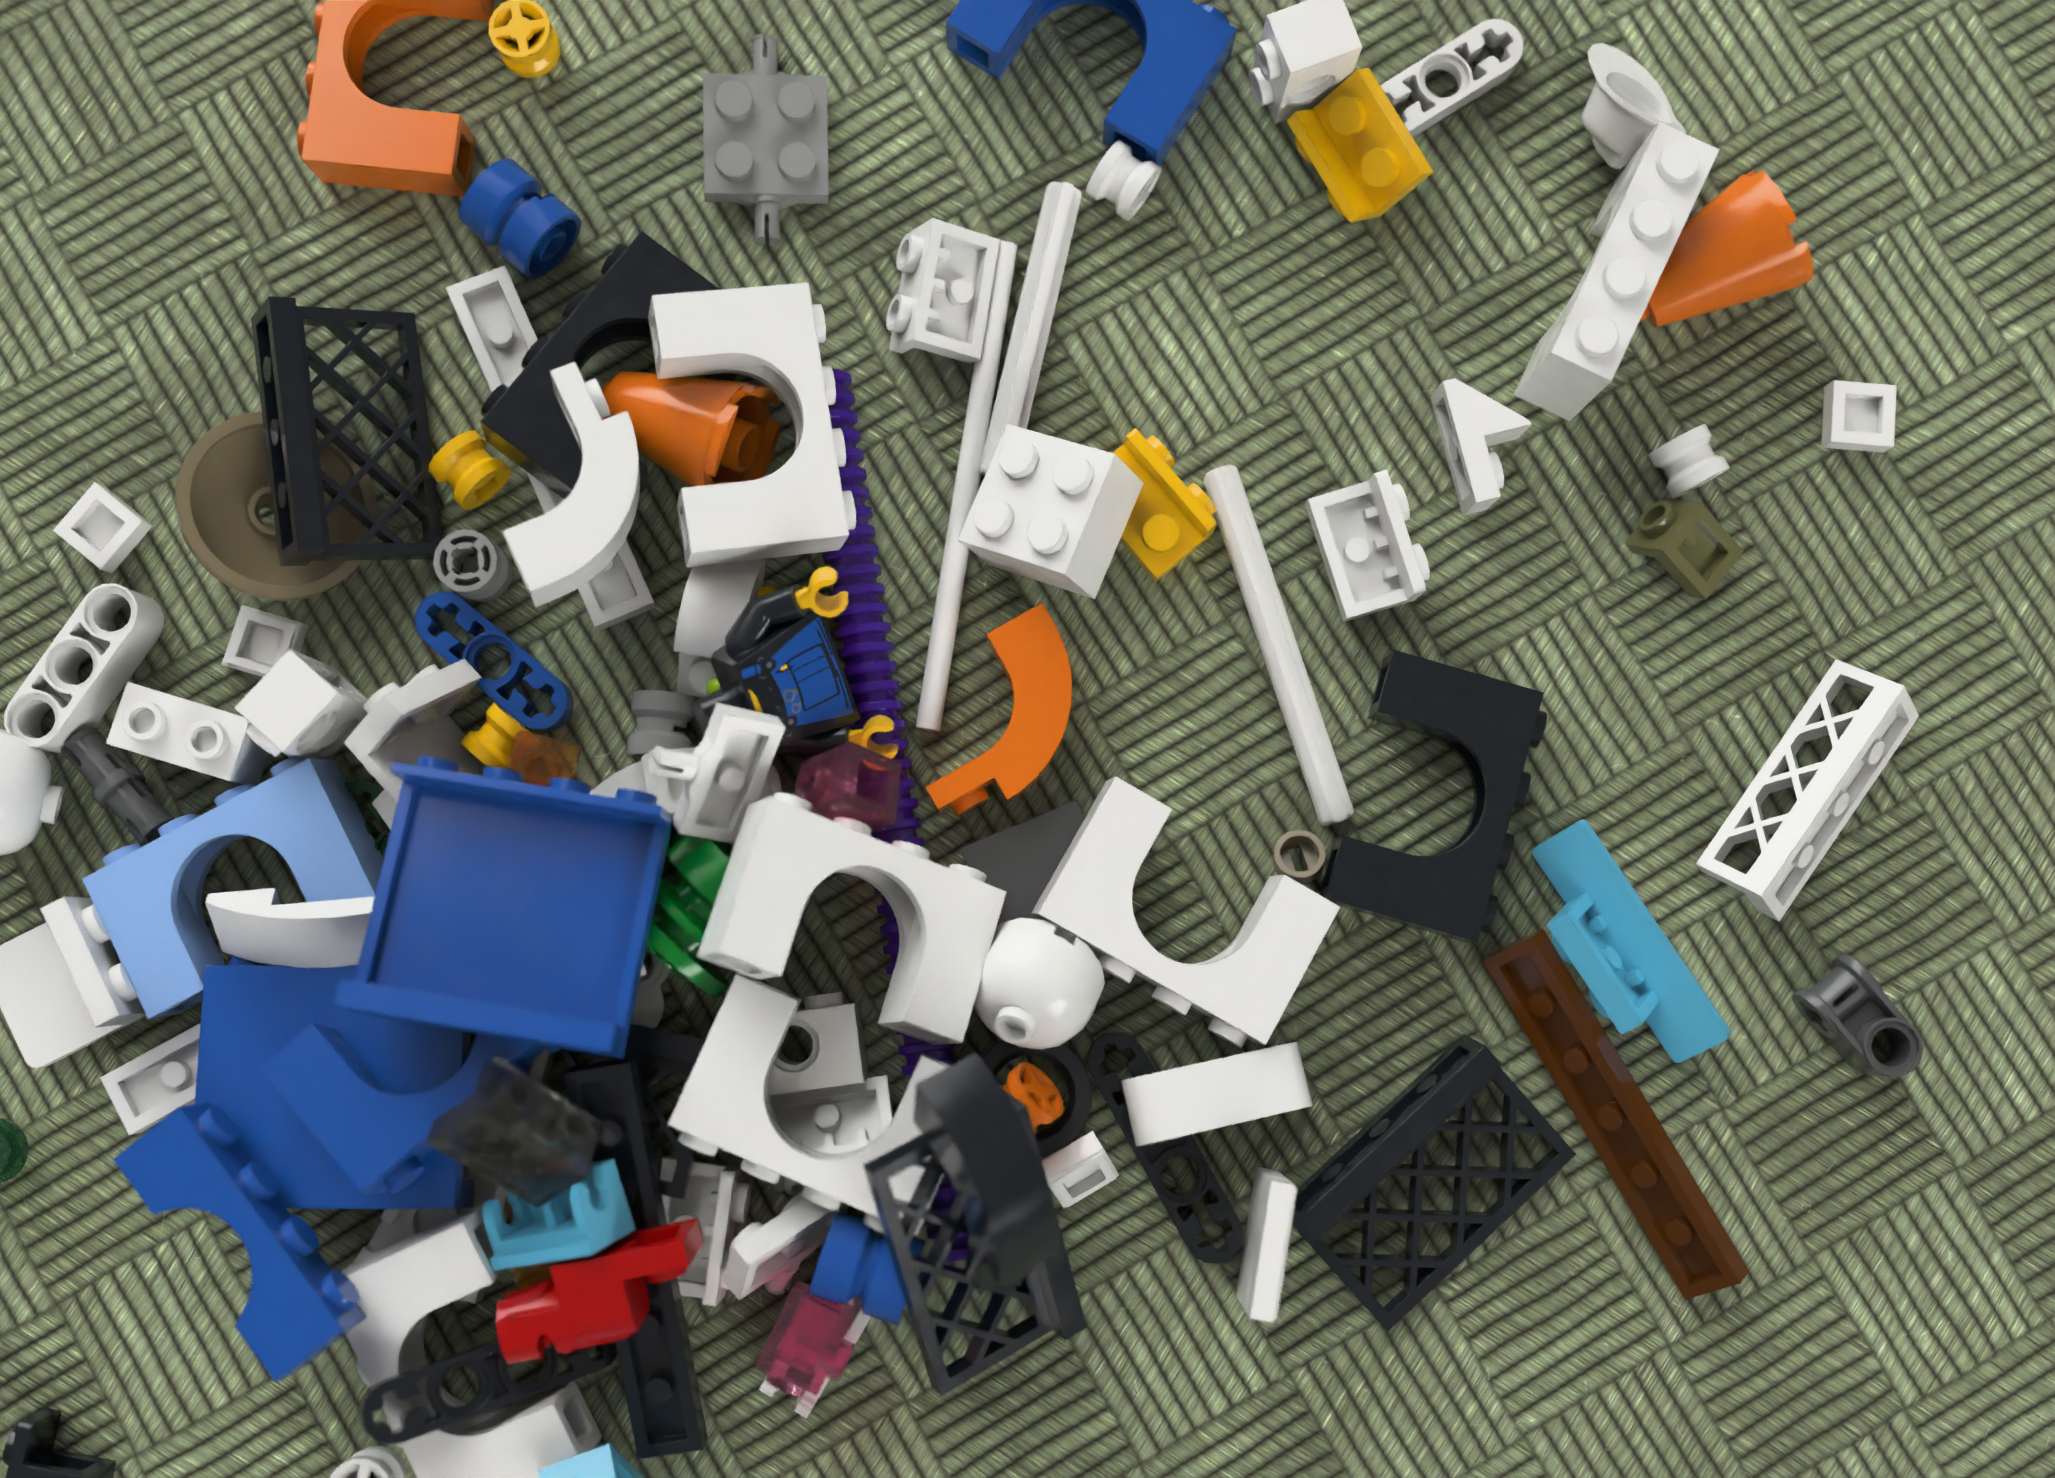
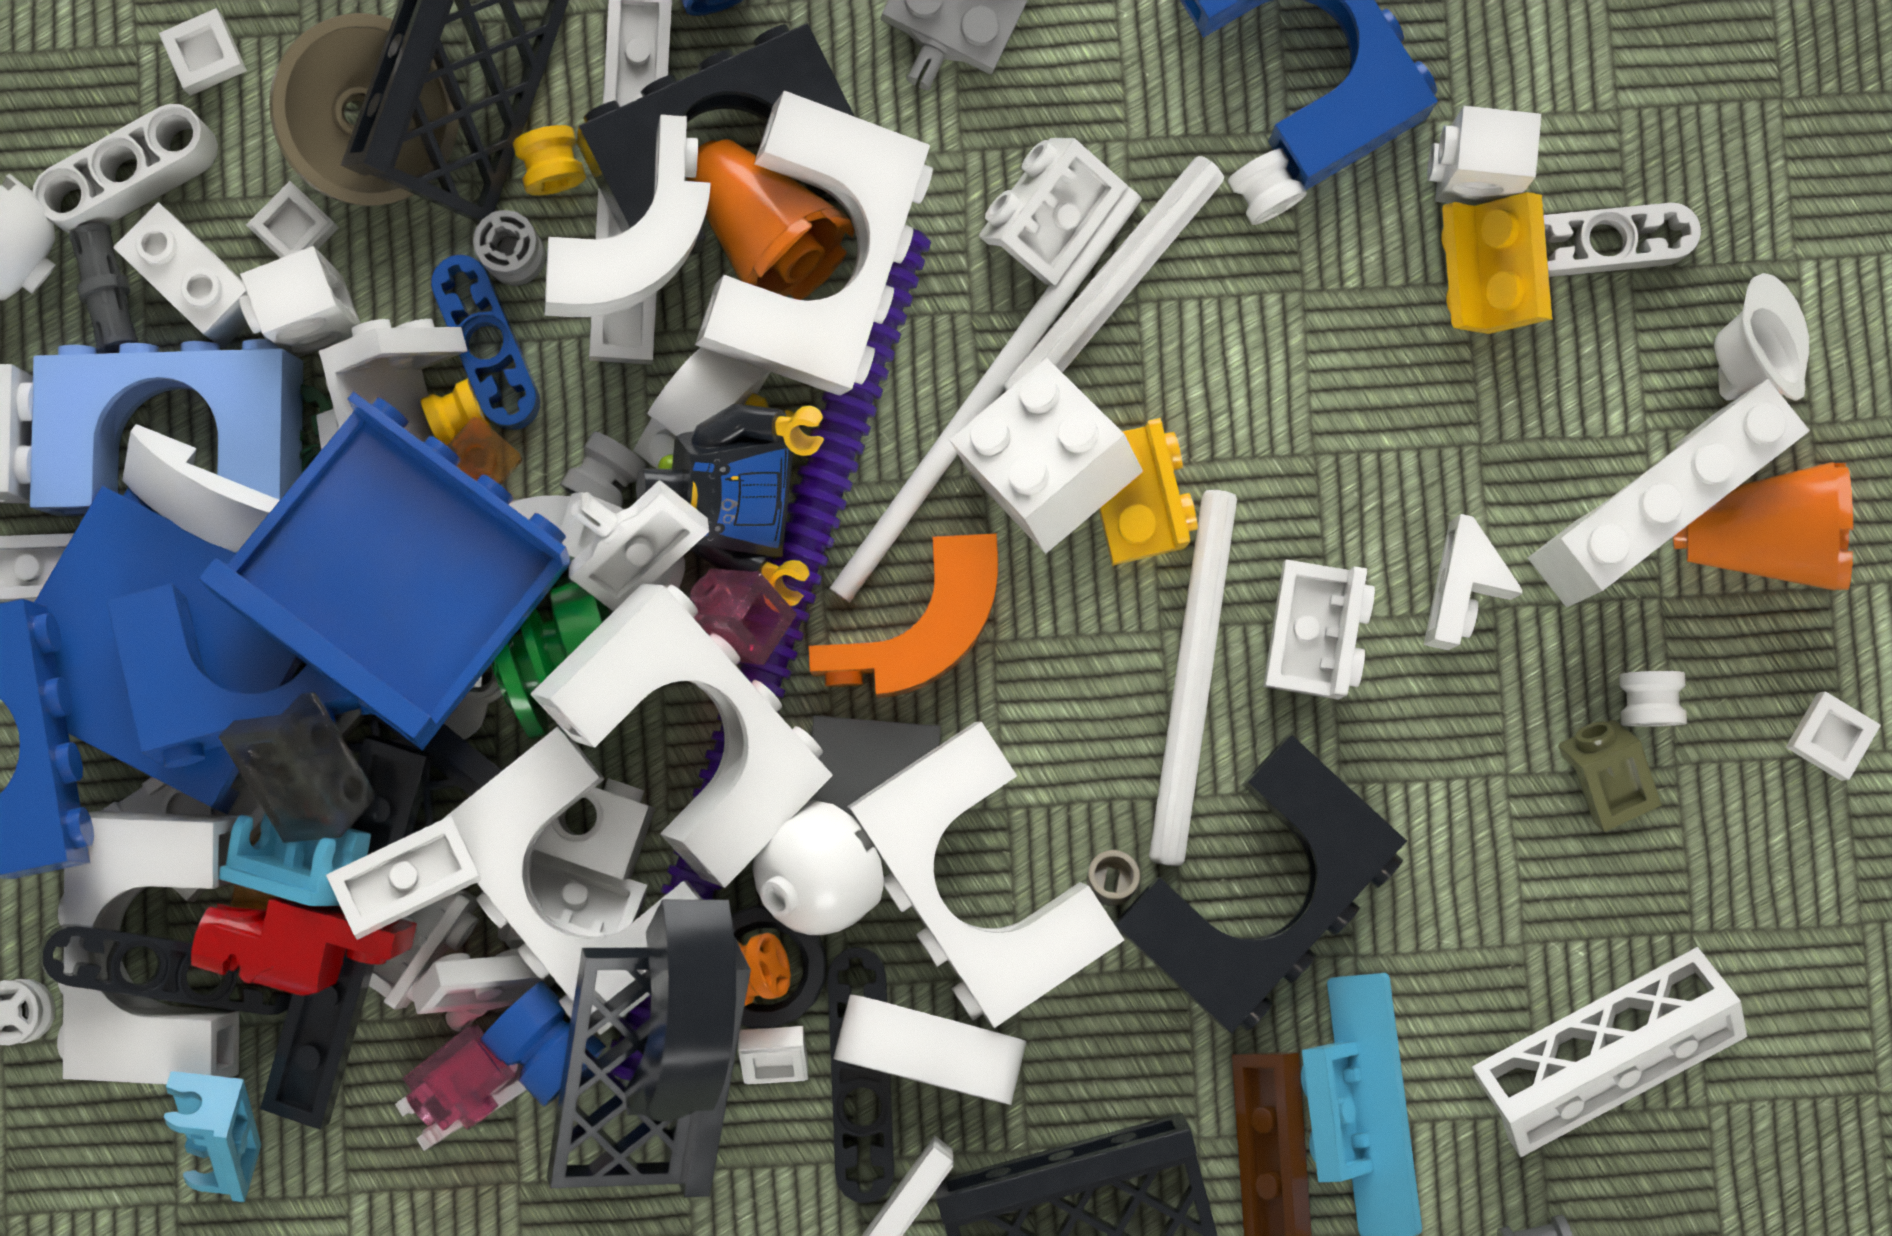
camera: 30 degrees right, 0 degrees up
(664, 1184) = (403, 877): none -> white plate

